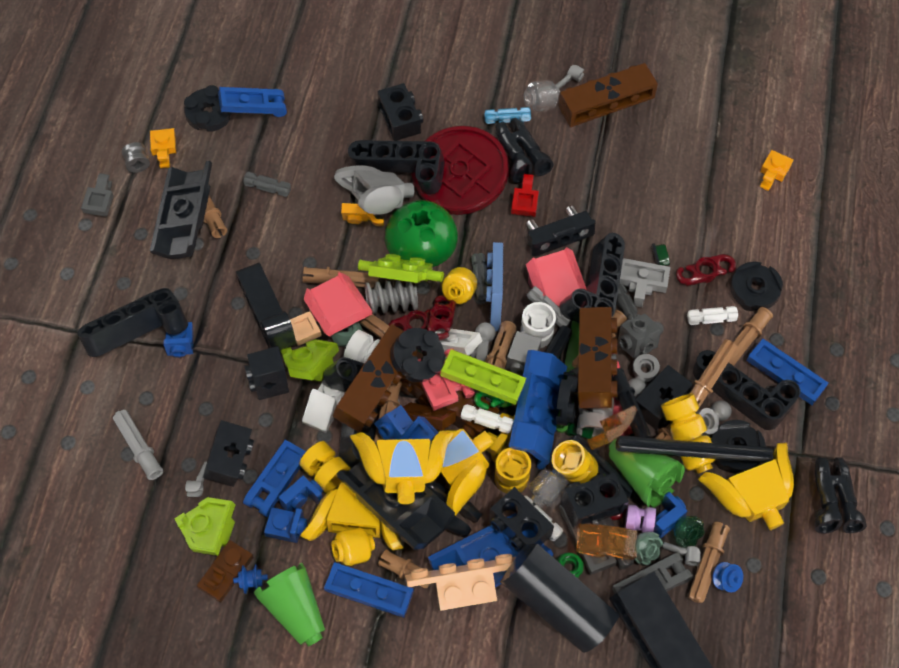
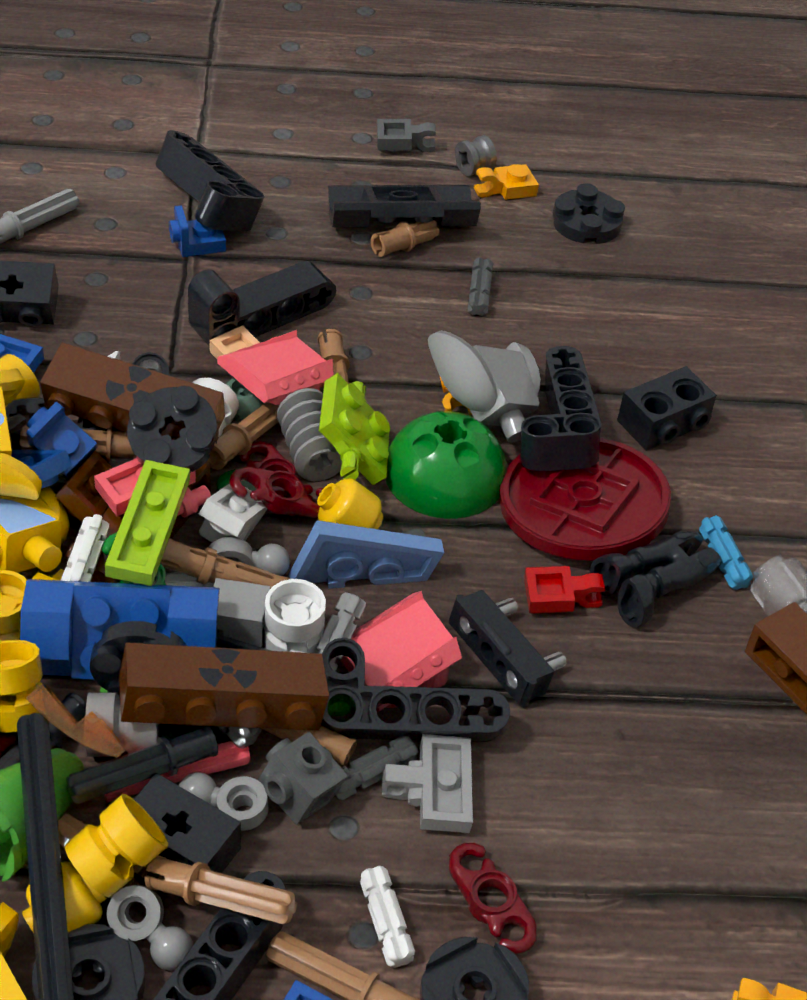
camera: 75 degrees right, 15 degrees down
(252, 101) = (613, 245): blue plate -> none
(266, 373) = (142, 306): black brick -> none
(311, 360) = (181, 352): lime plate -> none
(660, 254) = (505, 815): dark green piece -> none

